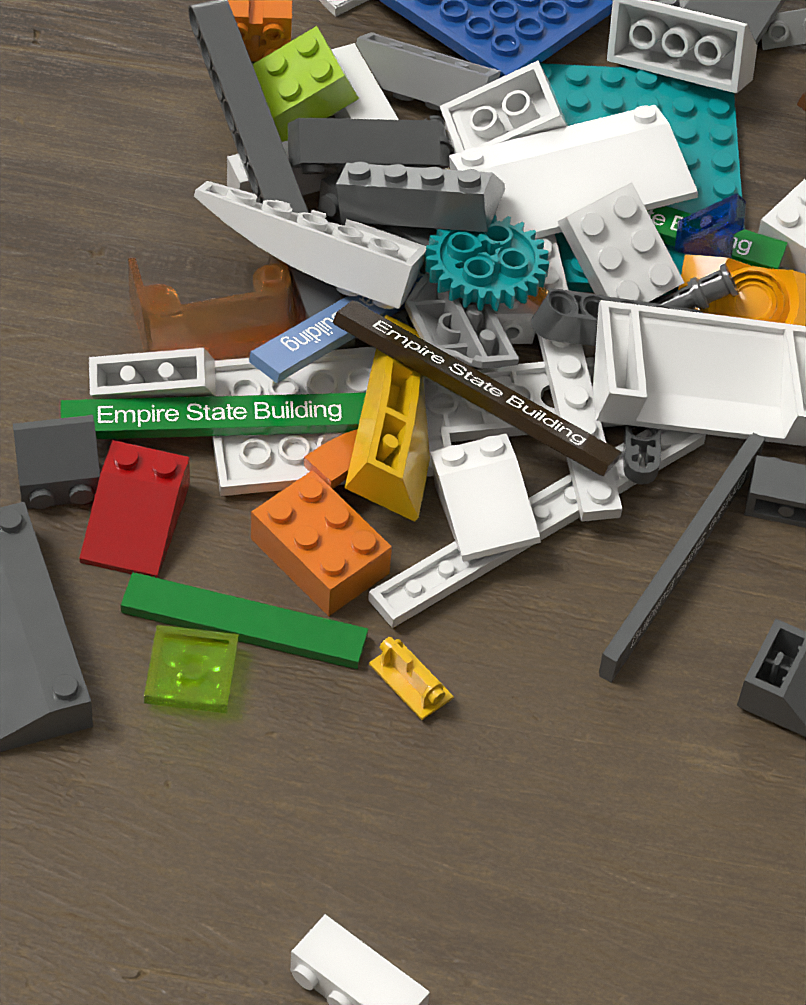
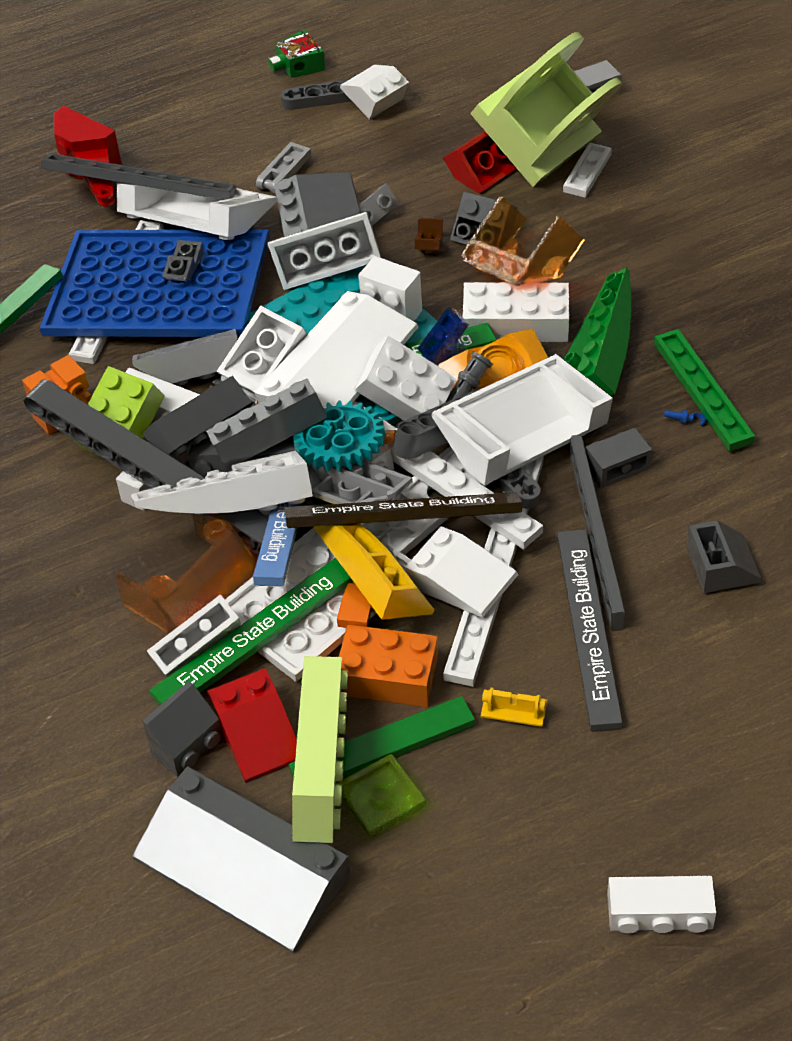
camera: 30 degrees left, 5 degrees down
(156, 573) = (318, 750): none -> yellowish green brick
(570, 657) = (589, 631): none -> dark grey tile
(706, 135) = (393, 286): none -> white brick

